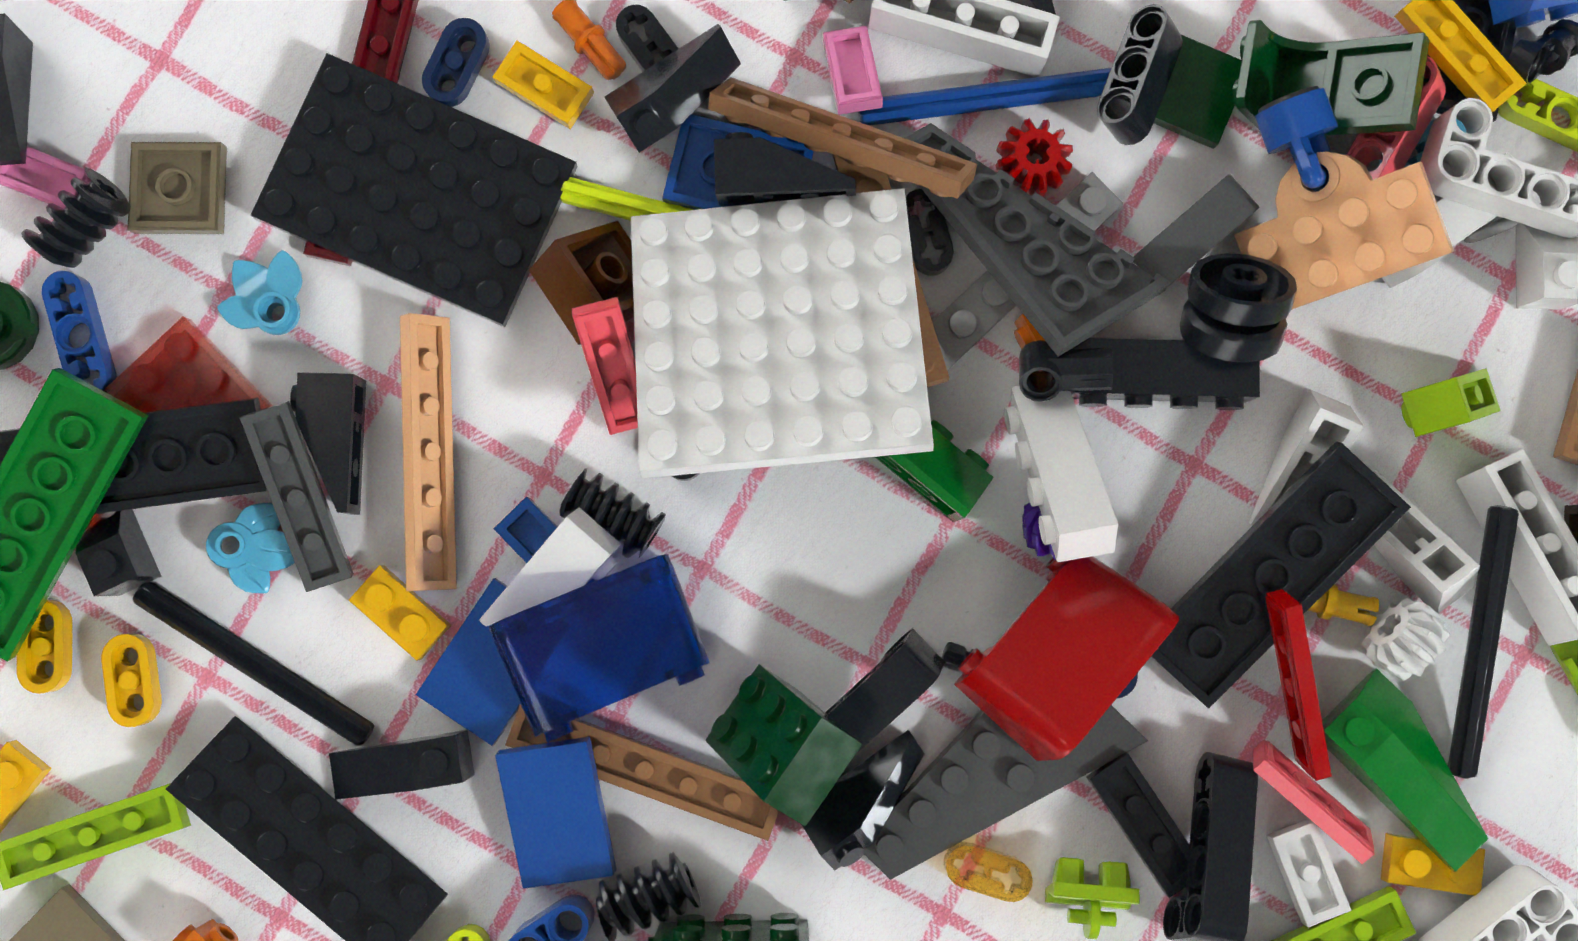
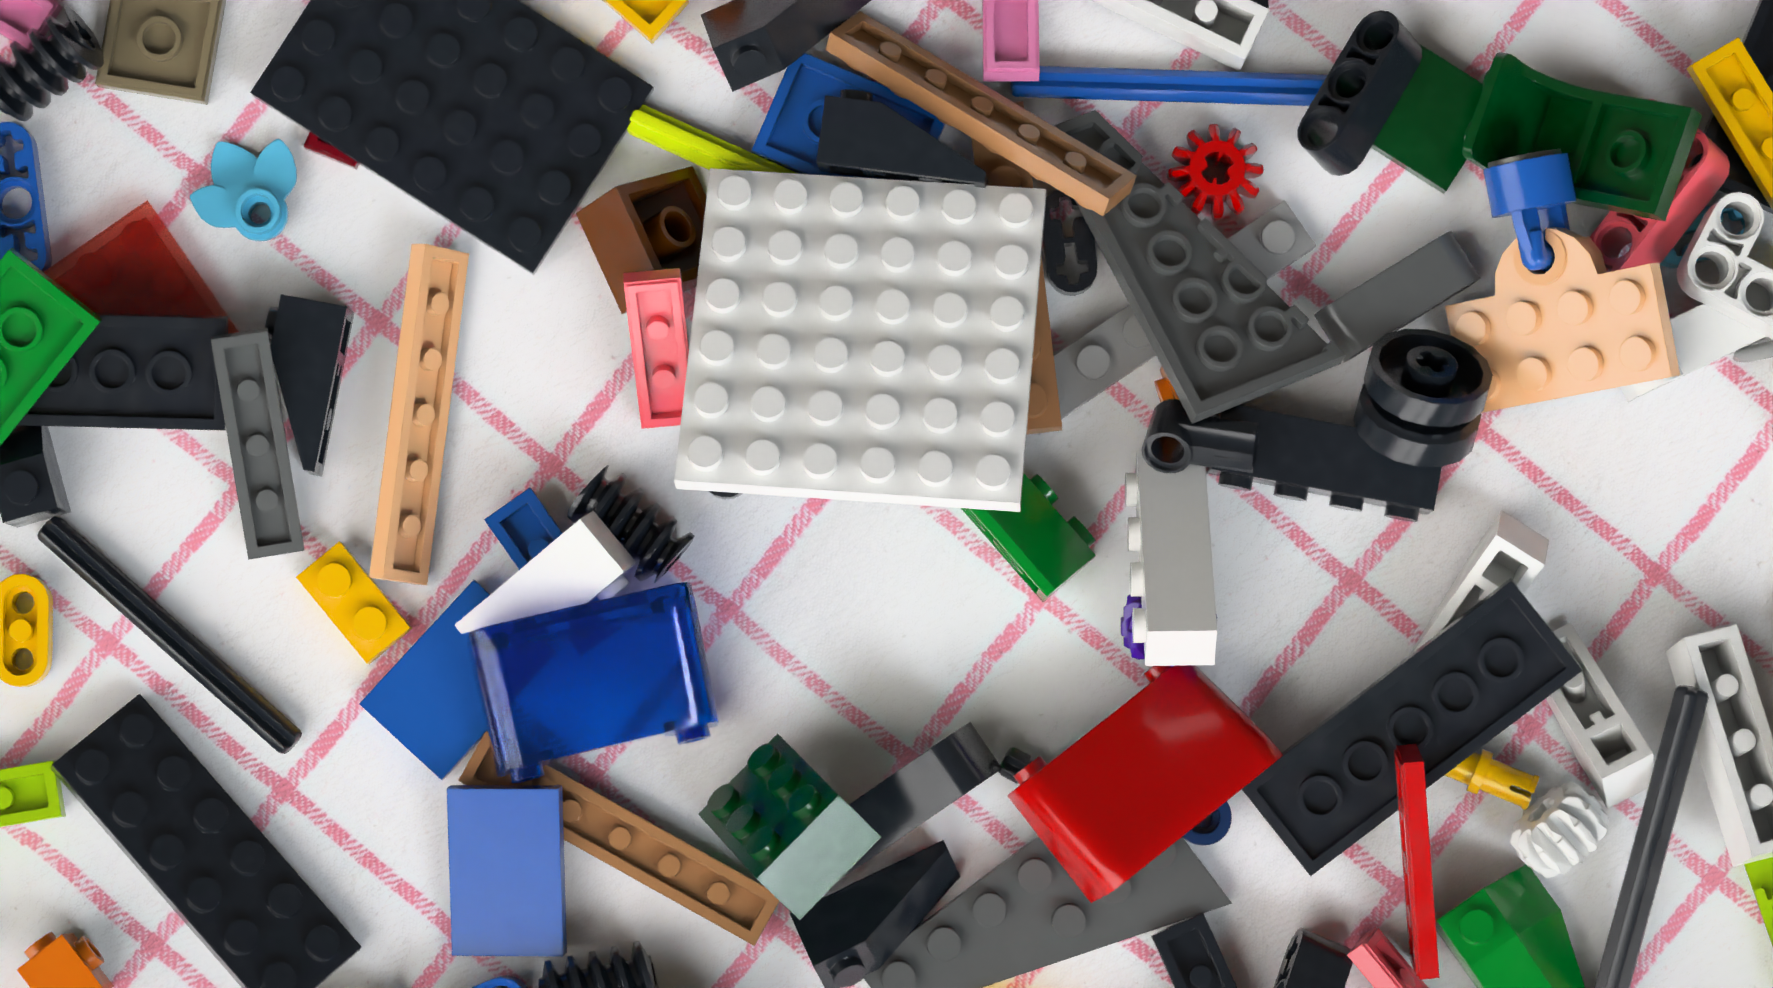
camera: 15 degrees right, 0 degrees up
(260, 548) = (199, 495): medium azure plate -> none
(402, 765) = (328, 785): black slope -> none
(1449, 403) = (1674, 554): lime slope -> none

